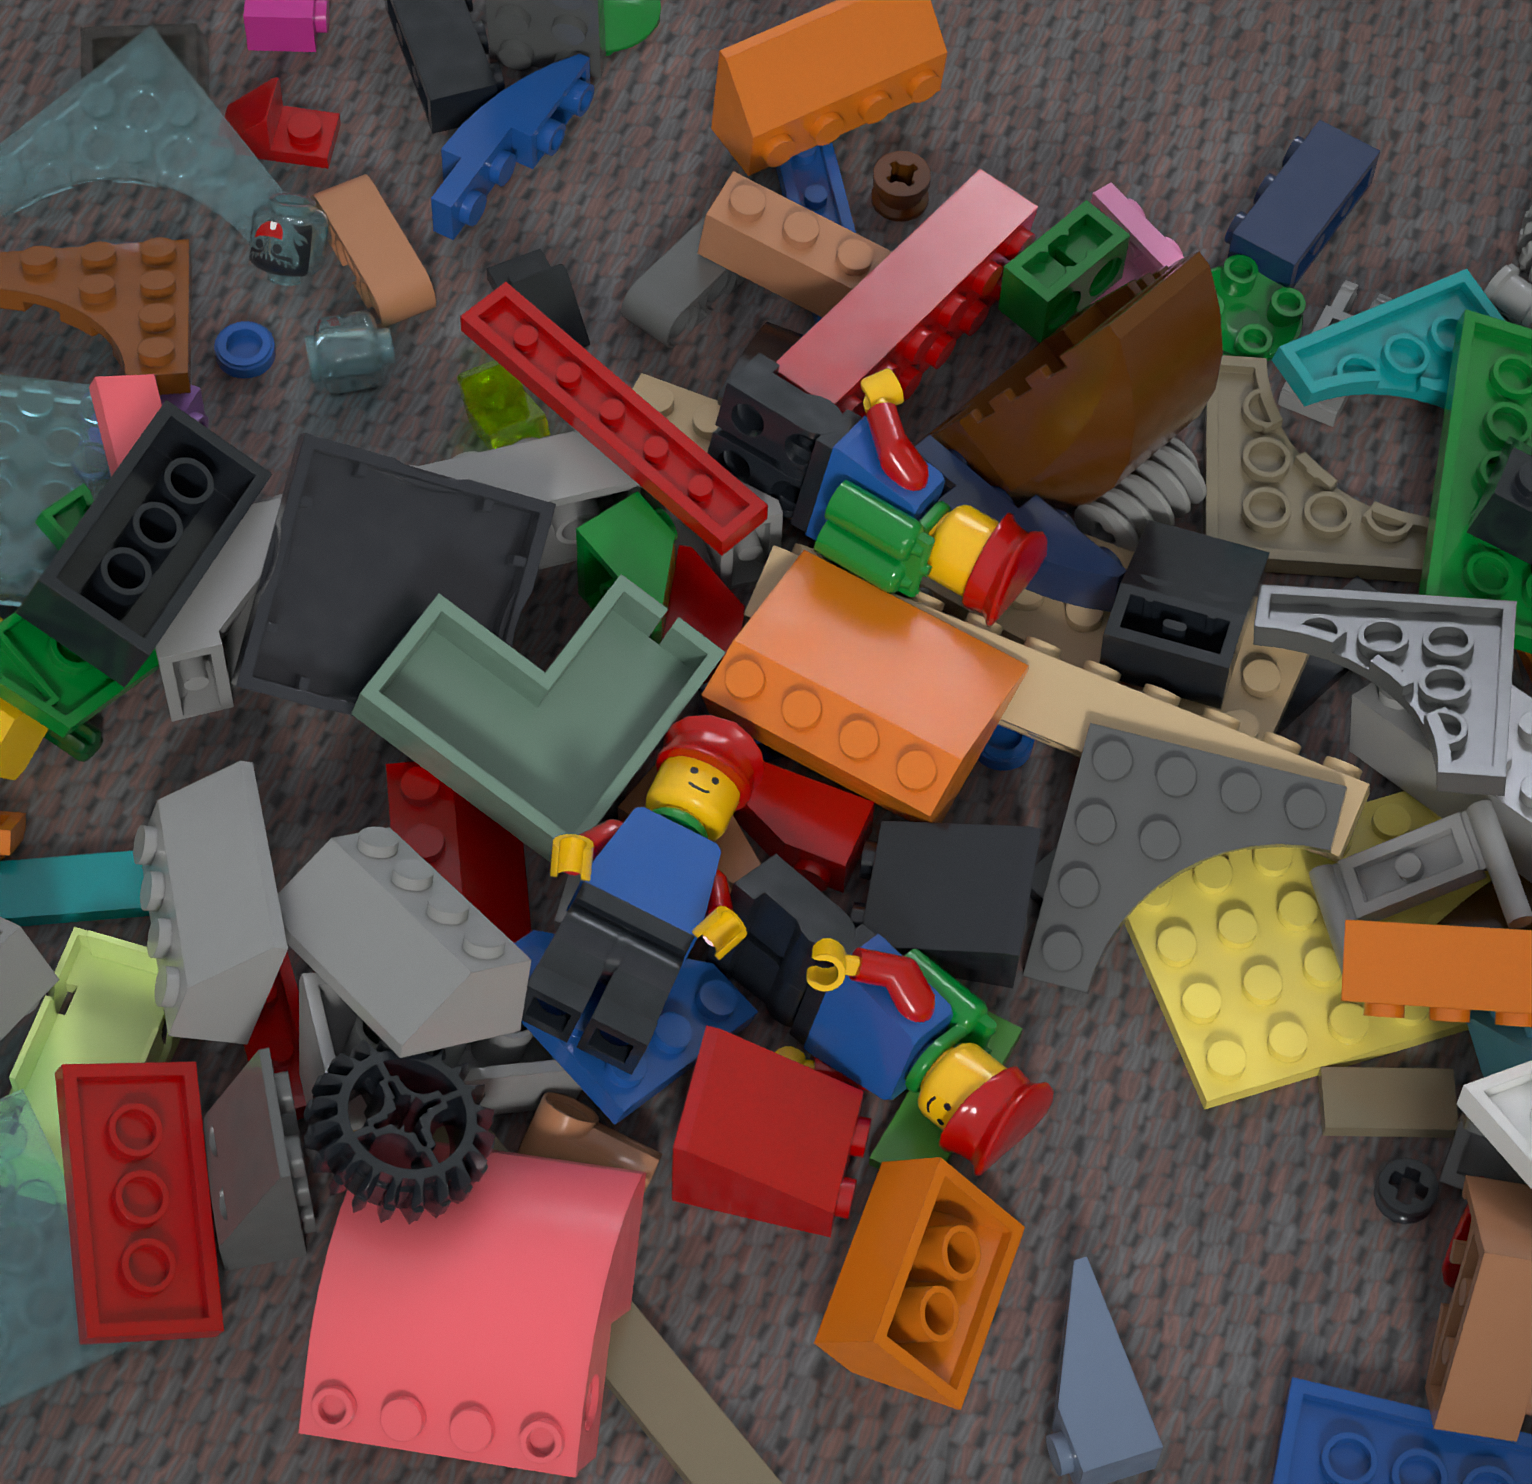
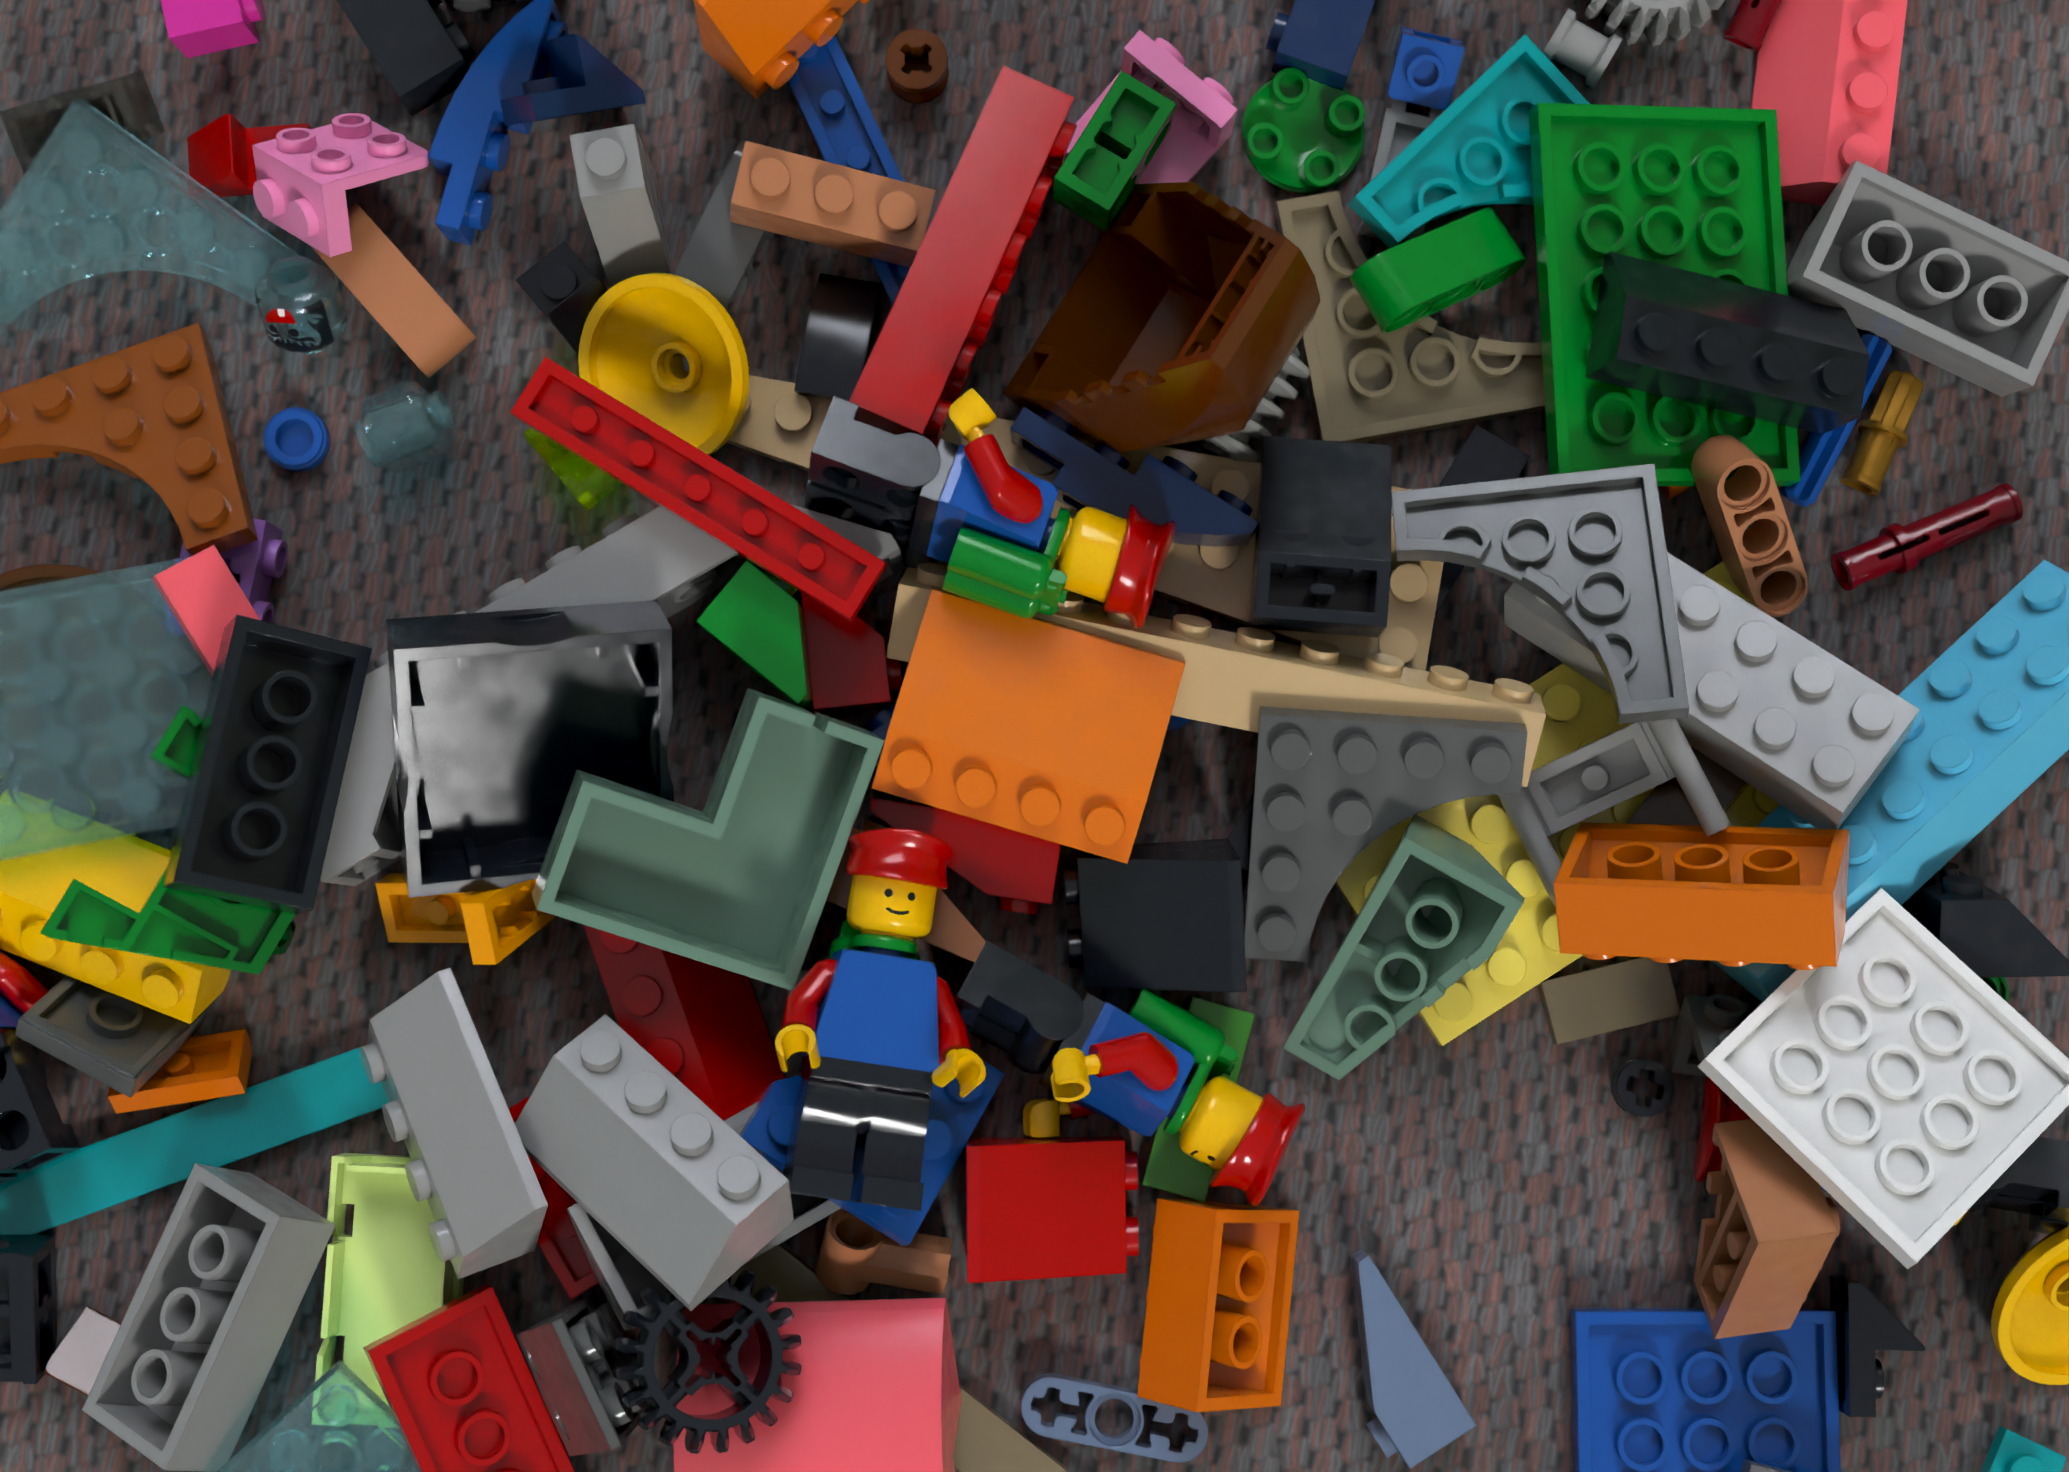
camera: 15 degrees left, 25 degrees up
(281, 743) = (488, 920): none -> light orange bracket
(327, 142) = (308, 170): none -> bright pink bracket
(589, 127) = (579, 85): none -> dark blue slope
(604, 219) = (621, 202): none -> light grey slope
(618, 314) = (637, 349): none -> yellow dish
(777, 1345) = (1126, 1442): none -> sand blue beam
(1189, 971) = (1416, 935): none -> sand green wedge
(1345, 433) = (1437, 269): none -> green beam
(1368, 276) = (1425, 68): none -> blue bracket

